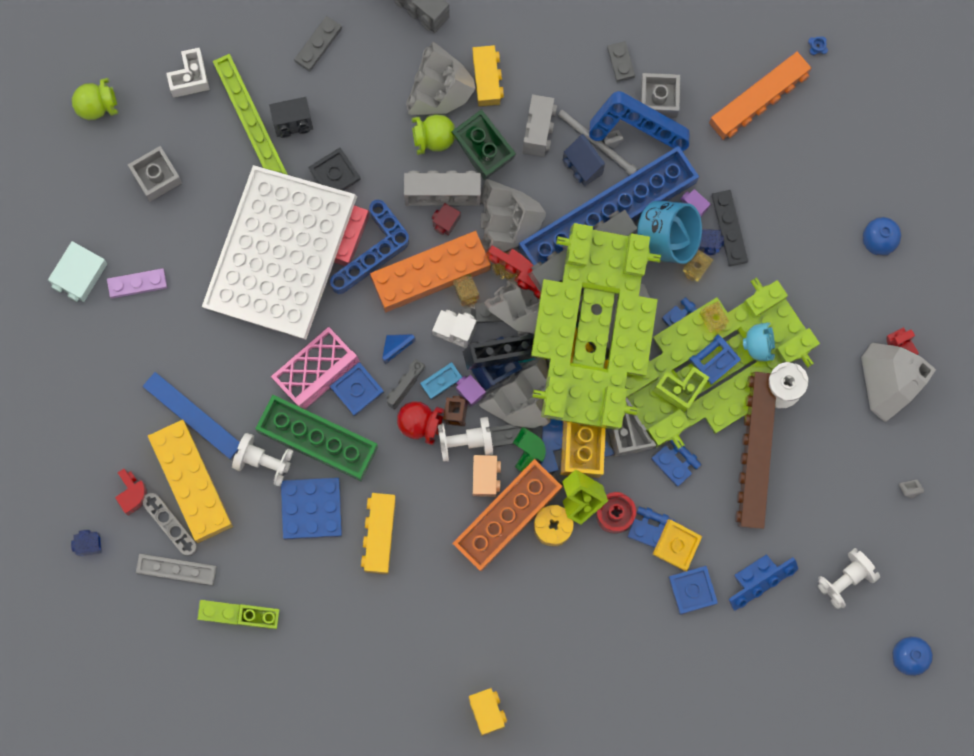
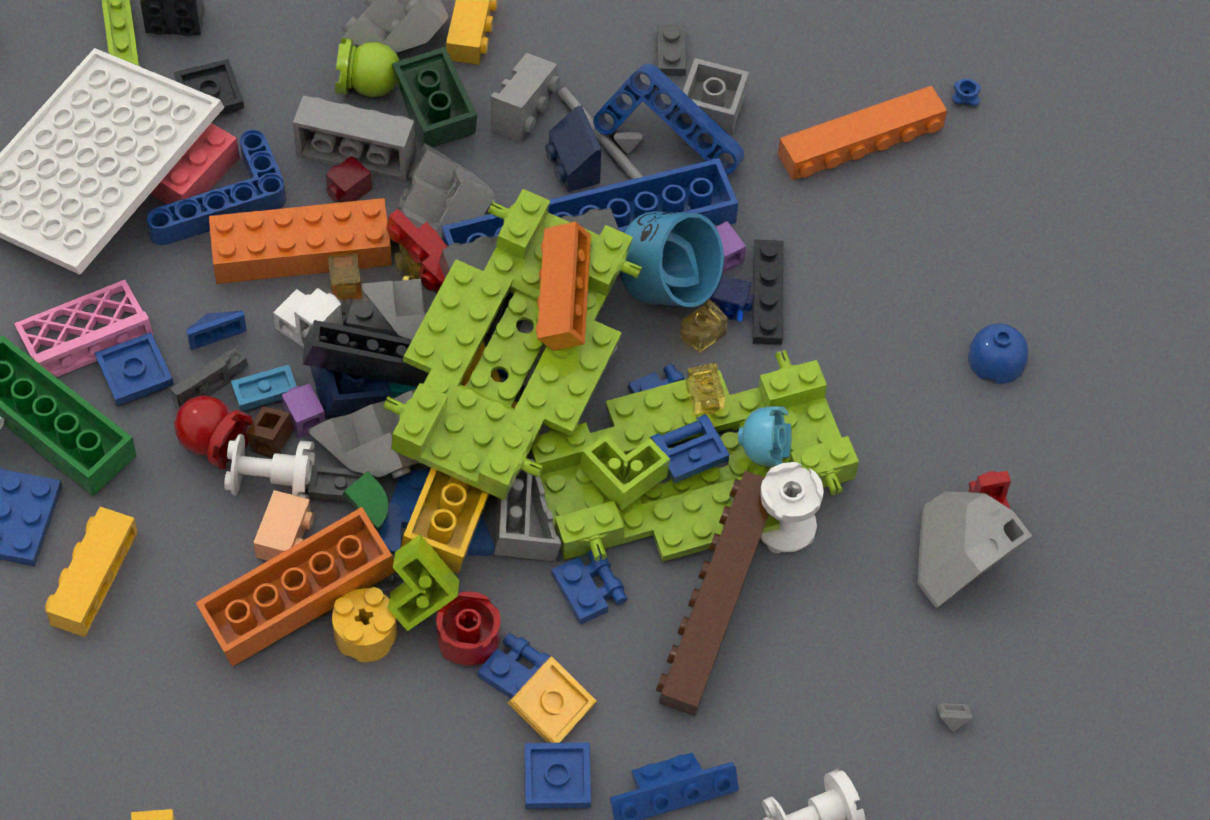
camera: 15 degrees right, 20 degrees down
(618, 285) = (563, 286): none -> orange brick

